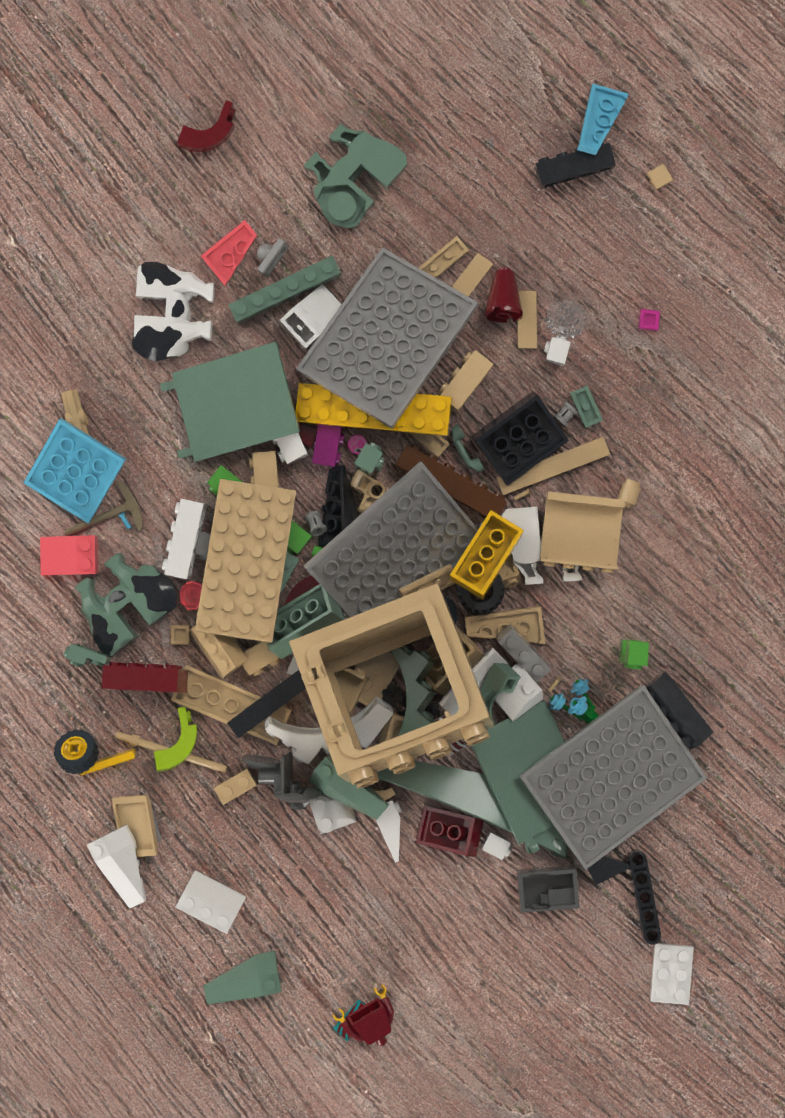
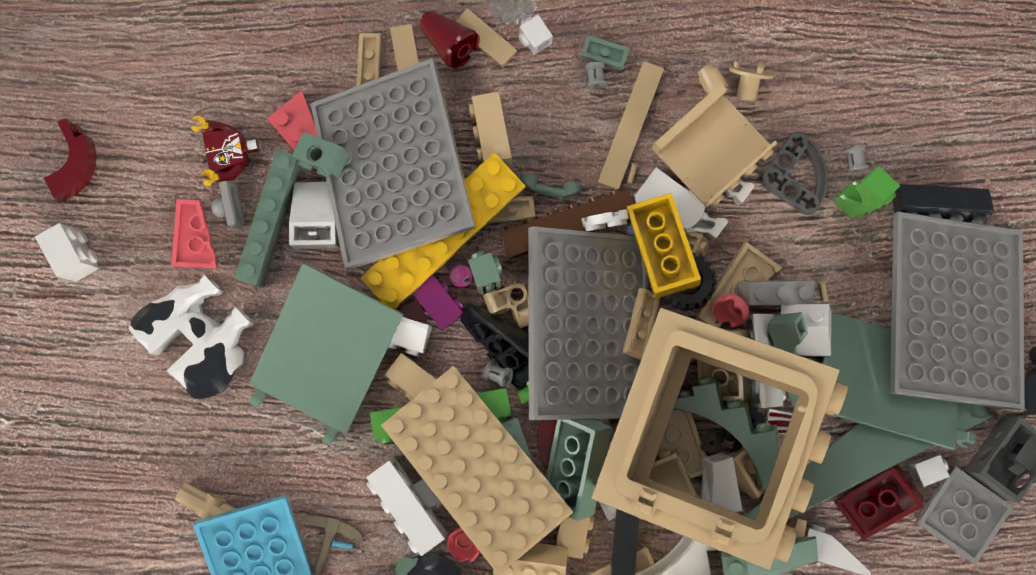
camera: 50 degrees left, 5 degrees down
(151, 185) = (67, 252): none -> white brick
(303, 221) = (225, 150): none -> dark red torso
(336, 193) = (225, 98): sand green animal -> none
(358, 255) = (293, 120): none -> coral wing
(359, 296) = (332, 158): none -> sand green brick
(472, 505) = (611, 218): none -> white plate
(487, 633) = (731, 309): none -> coral hair
(488, 892) = (964, 515): none -> light grey plate
(520, 438) = (582, 130): black slope -> none
(578, 706) = (869, 285): medium azure plant -> none
(608, 590) = (781, 174): none -> dark grey beam
(651, 516) = (749, 80): none -> tan piece
(660, 631) = (856, 159): none -> light grey bush

